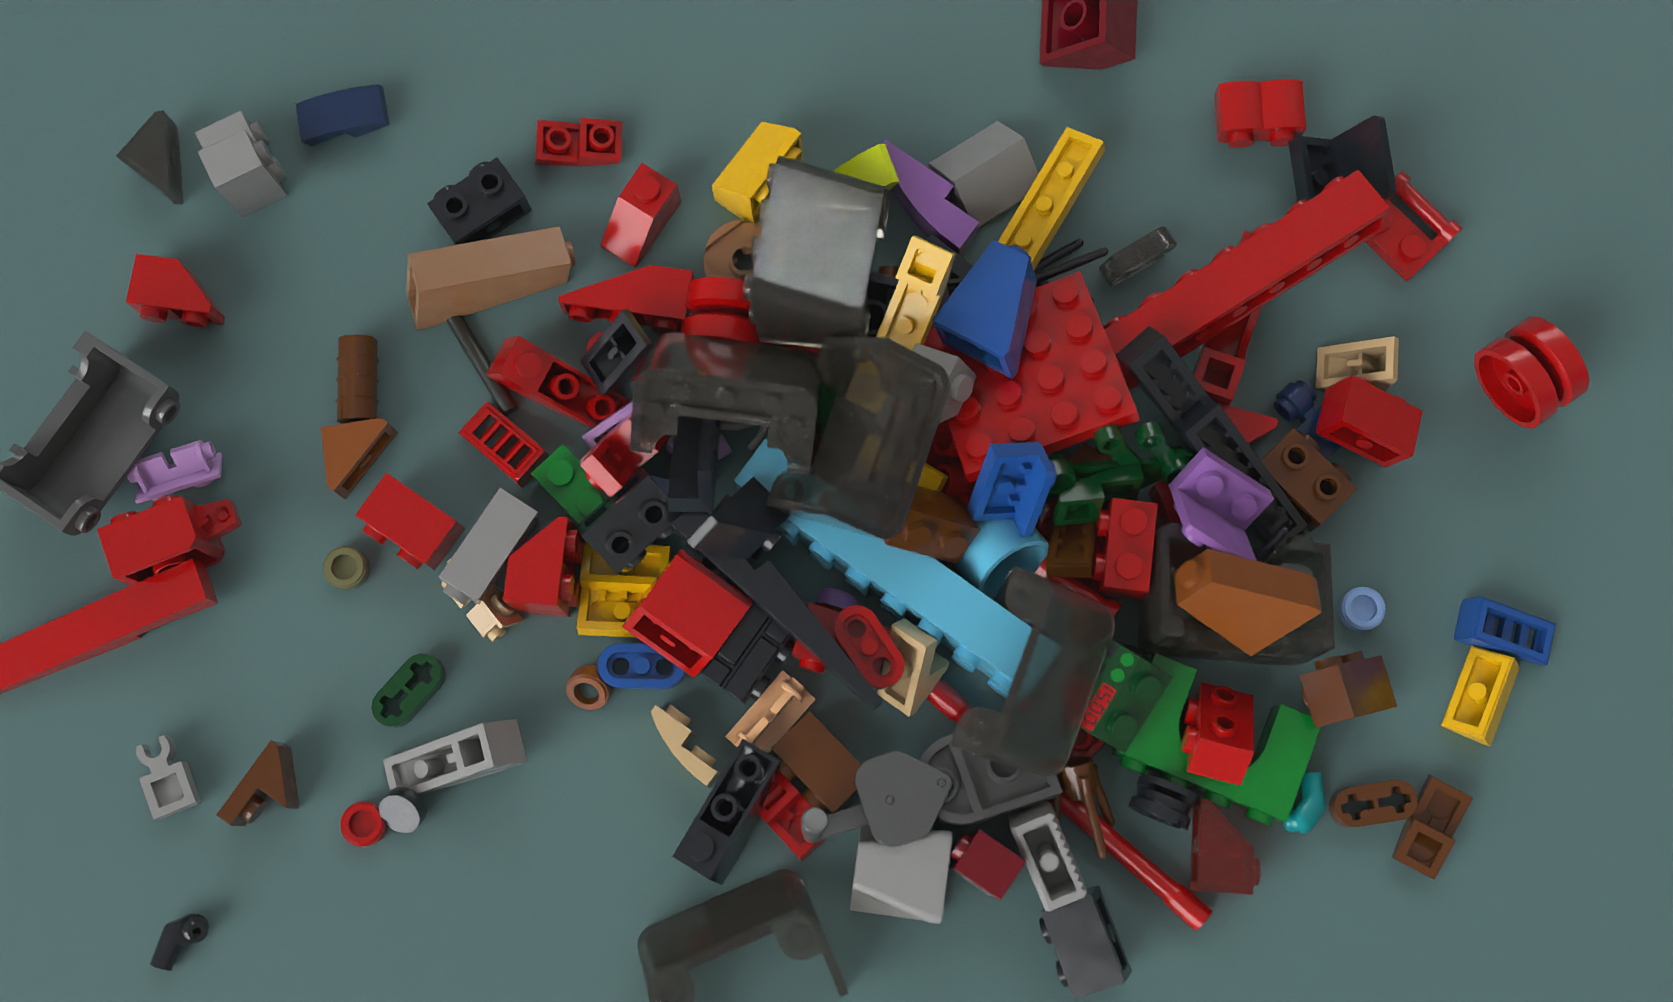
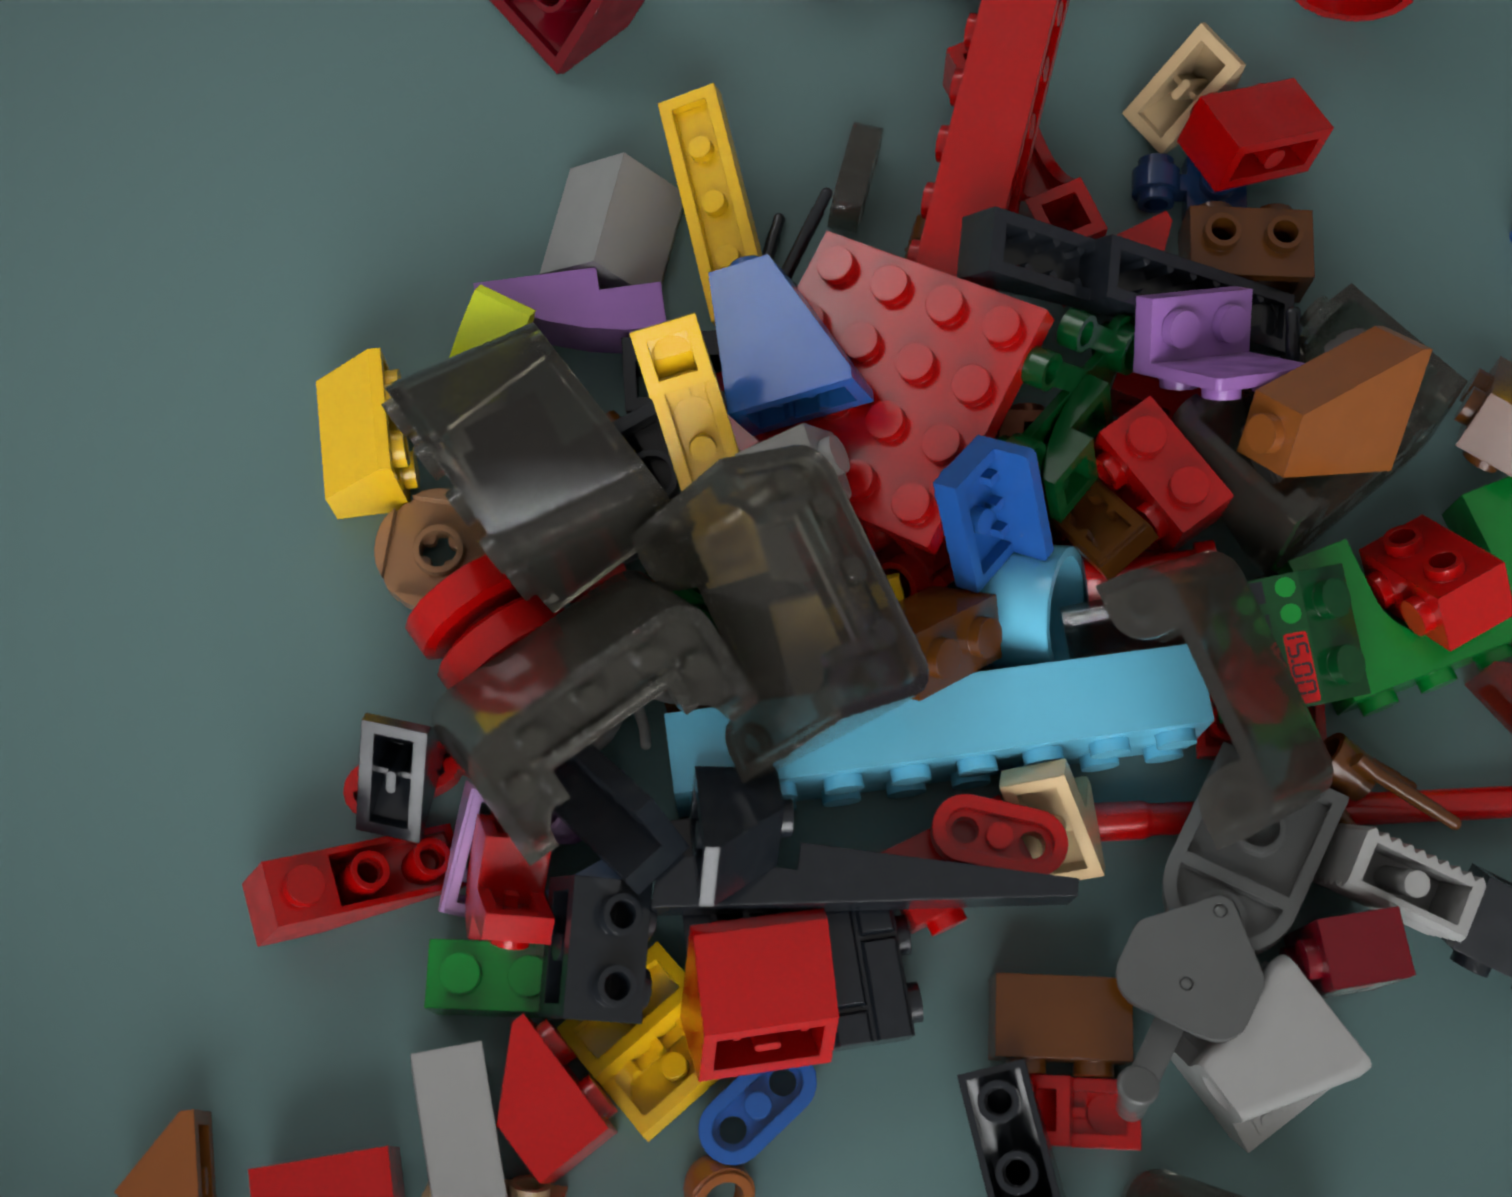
camera: 45 degrees left, 5 degrees down
(357, 378) = (103, 1095): reddish brown axle -> none
(479, 204) = (66, 762): black brick -> none
(481, 364) = (228, 938): pearl dark grey bar -> none
(485, 274) = (147, 834): medium nougat slope -> none
(522, 472) = (407, 1006): red slope -> none
(578, 144) = (120, 594): red slope -> none
(640, 215) = (270, 606): red slope -> none
(651, 294) = (370, 673): red slope -> none
(674, 731) = (872, 1145): tan slope -> none
(772, 713) = (953, 1022): light nougat hinge -> none
(836, 599) = (902, 824): medium lavender tile -> none
(1161, 806) = (1449, 717): black wheel -> none
(1361, 609) = (1433, 325): light blue tile -> none

